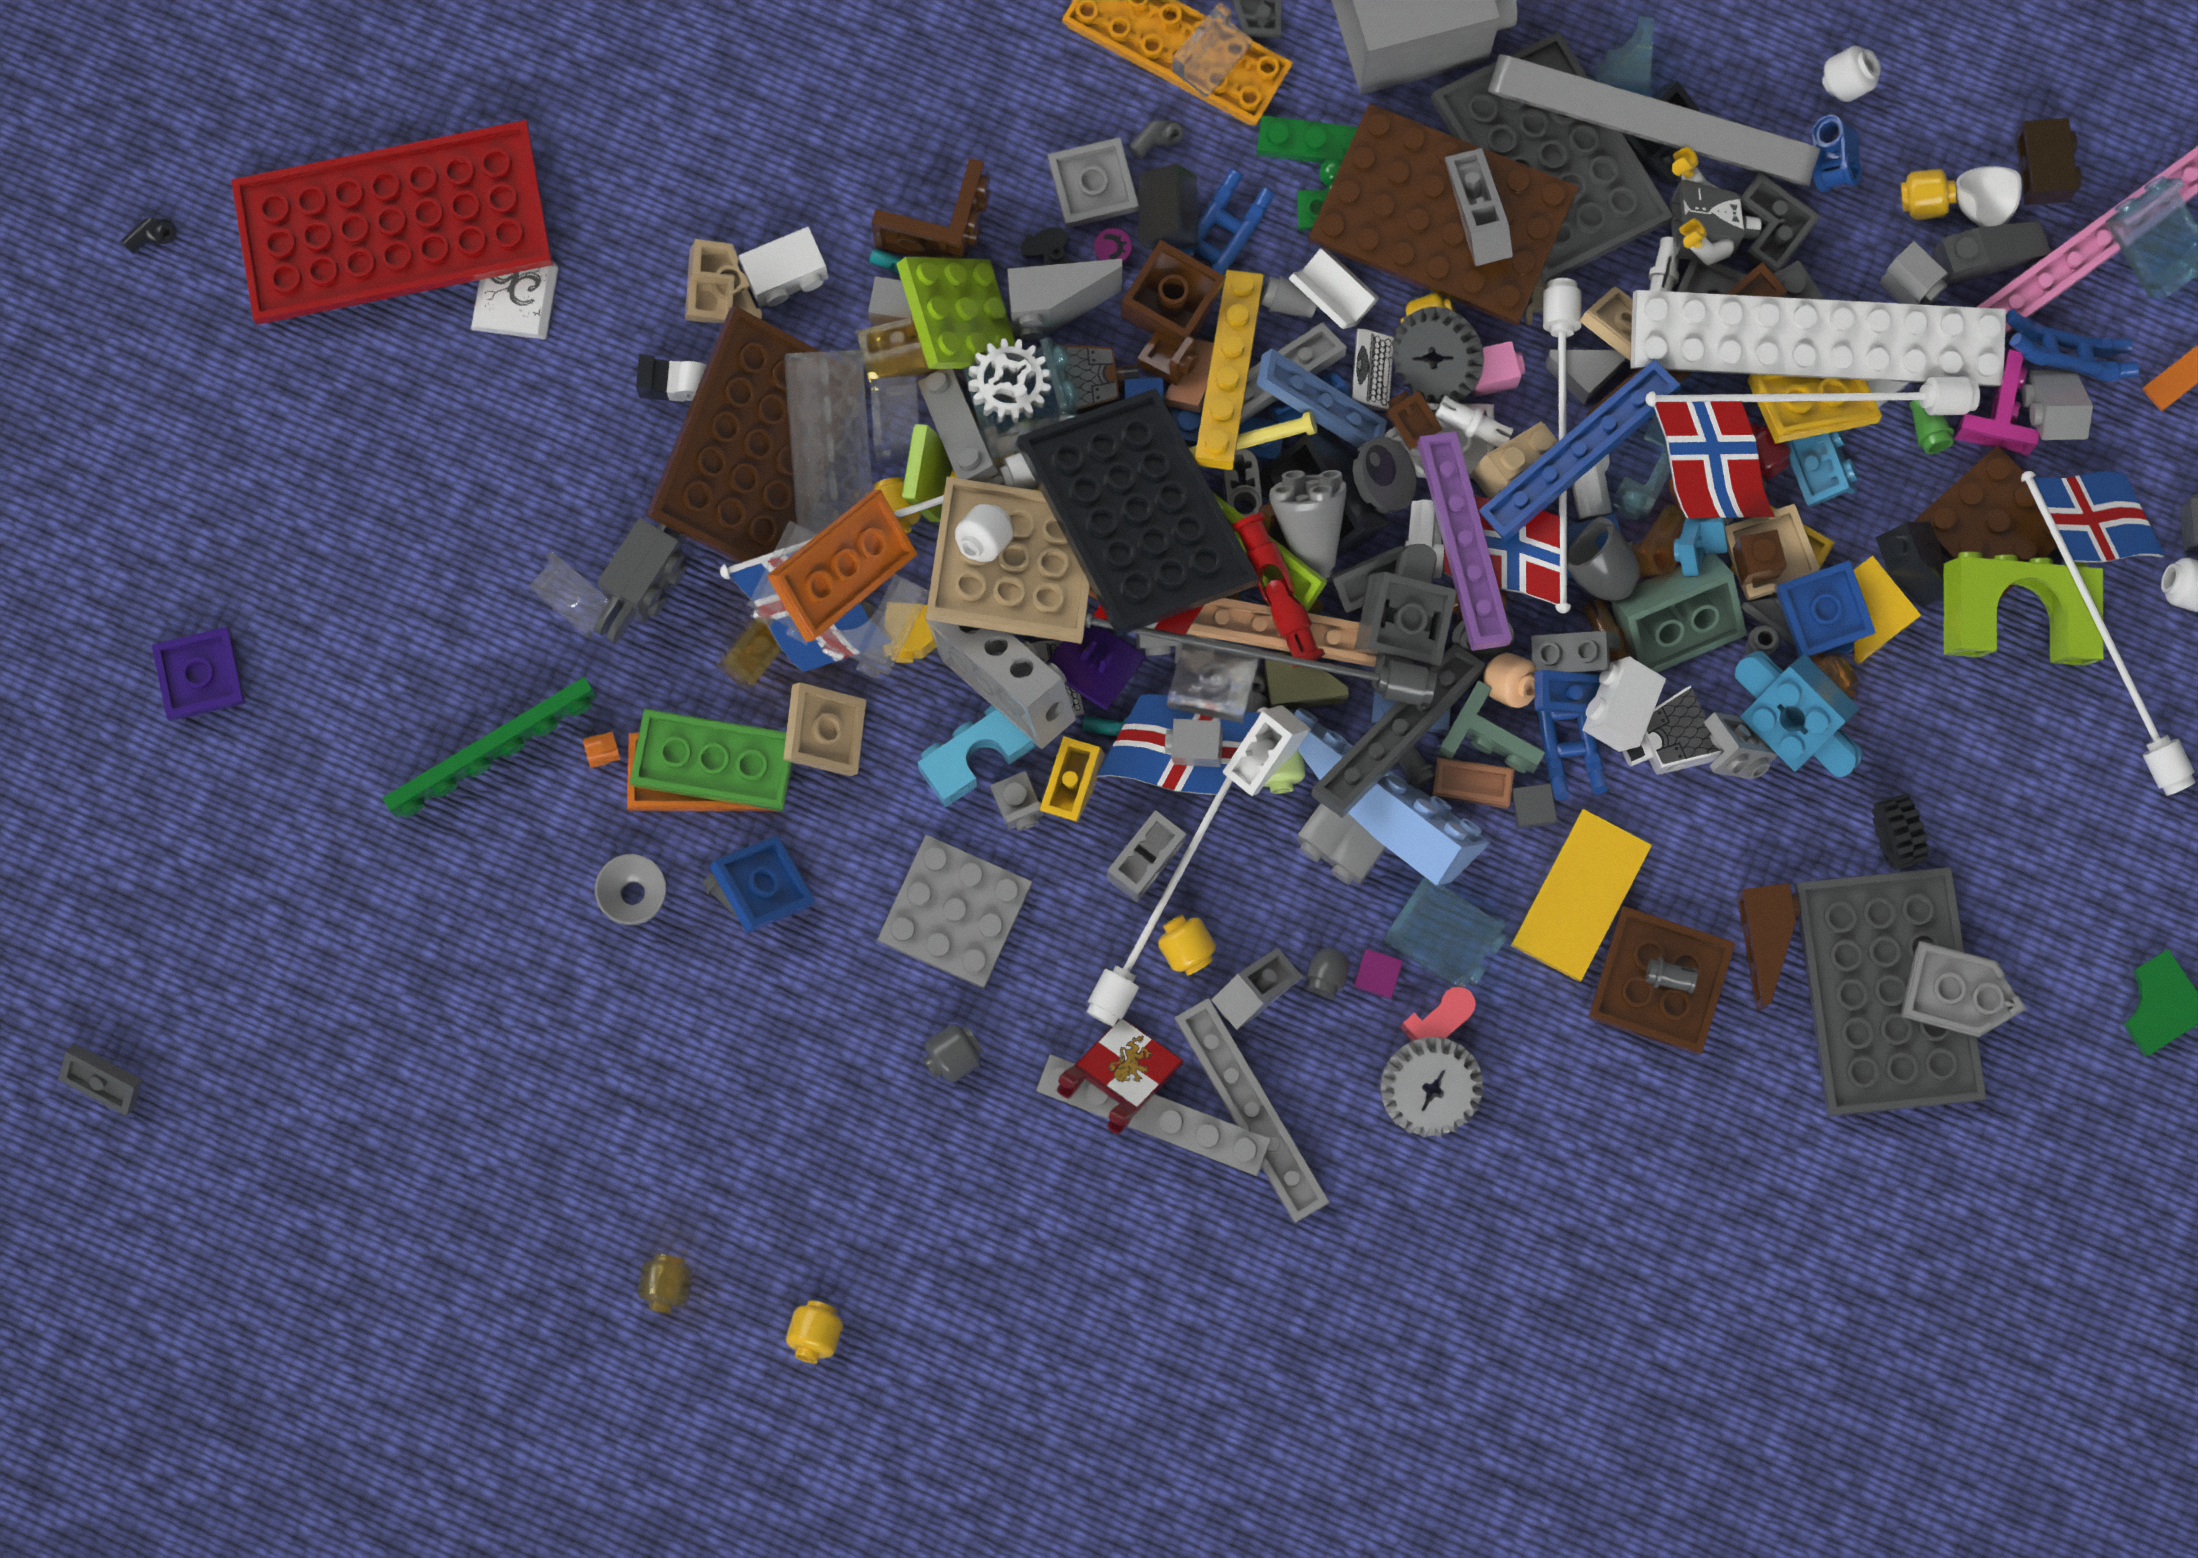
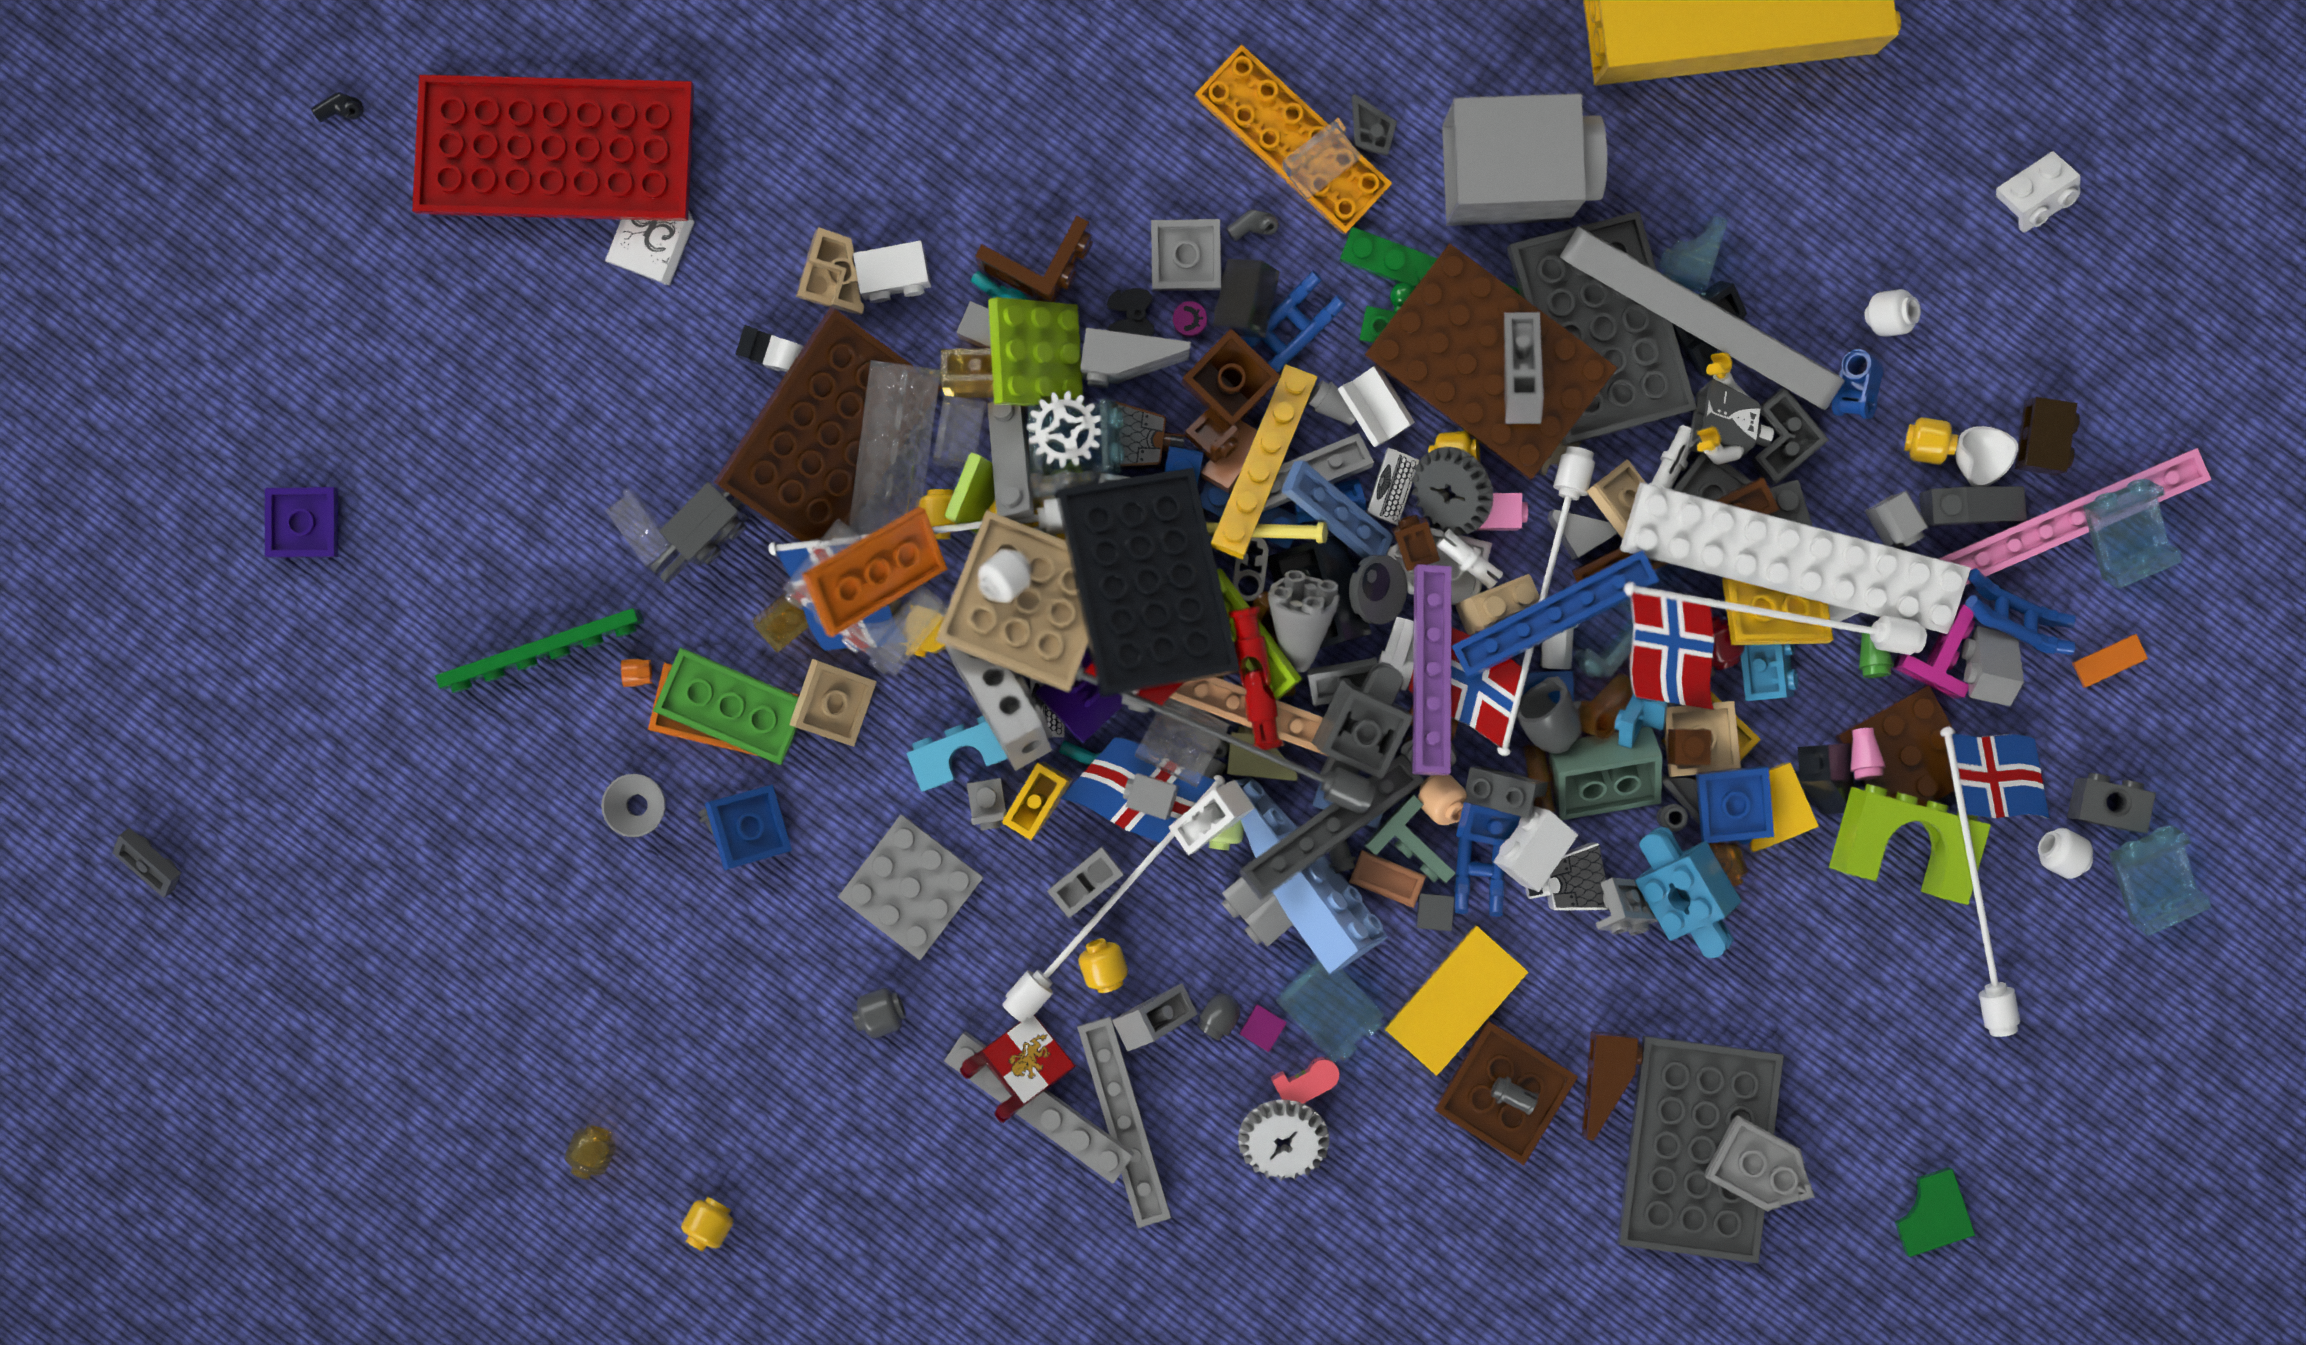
camera: 15 degrees right, 10 degrees up
(1900, 832) = (1747, 1015): black tyre -> none
(1950, 528) = (1866, 756): none -> bright pink cone

